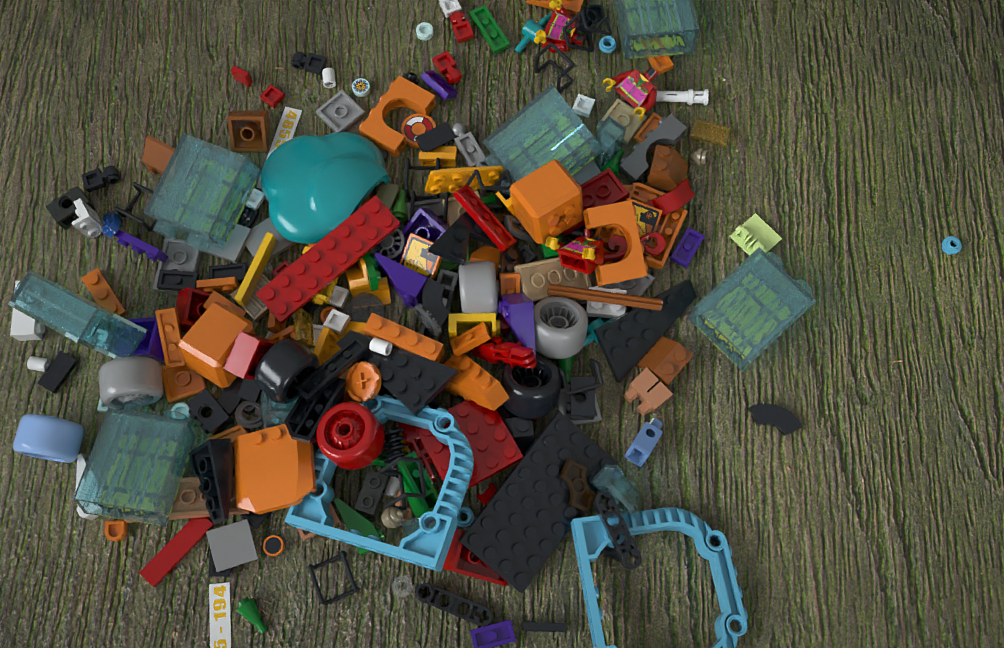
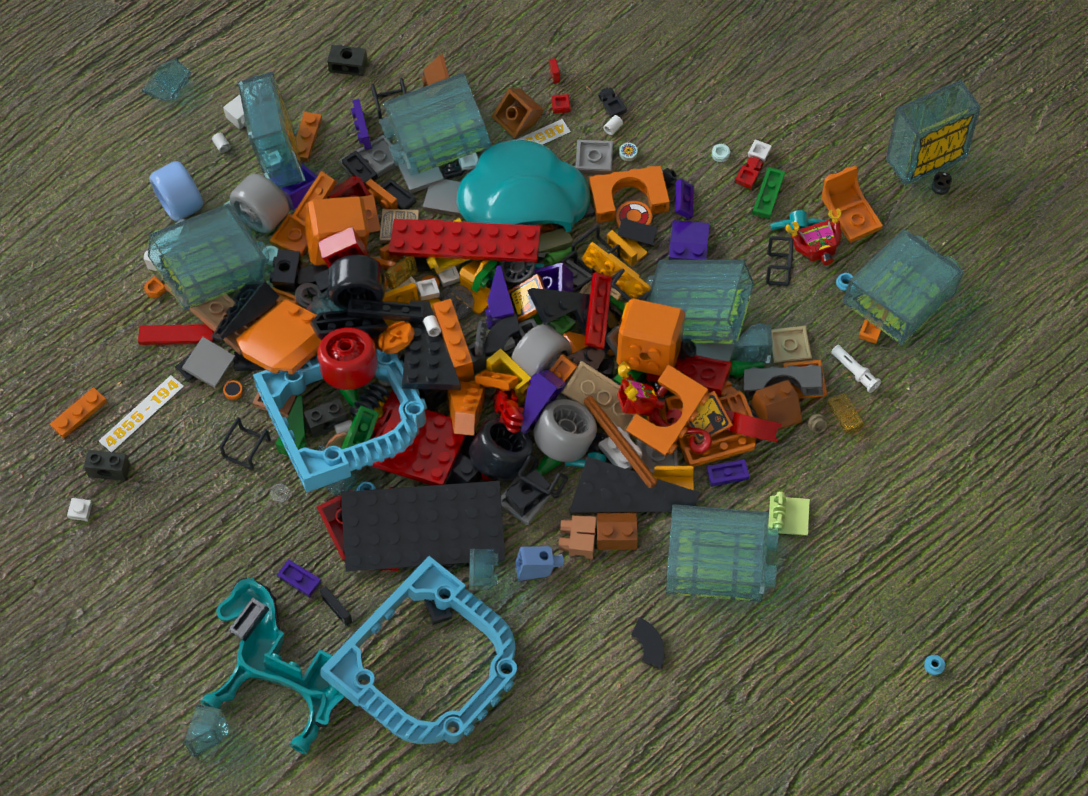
camera: 50 degrees right, 10 degrees down
(57, 372) = (226, 158): black tile -> none
(88, 221) = (347, 78): white bracket -> none
(96, 179) = (383, 55): black plate -> none
(111, 224) = (359, 92): blue plate -> none
(249, 611) = (175, 412): green cone -> none
(256, 269) = (415, 206): yellow tile -> none
(384, 470) = (343, 427): black piece -> none
(392, 517) = (315, 430): dark tan plate -> none
(445, 63) = (706, 188): red plate -> none
(453, 606) = (301, 535): black beam -> none
(468, 146) = (653, 256): light grey plate -> none
(479, 113) = (689, 240): none -> dark purple slope
(575, 477) = (461, 532): dark brown tile -> none
(583, 105) = (772, 307): white plate -> none
(593, 15) = (852, 248): black tile -> none
(594, 29) = (833, 236): black piece -> none
(614, 531) = (449, 590): black beam -> none
(636, 89) = (822, 331): torso -> none
(660, 284) = (676, 475): none -> light orange panel

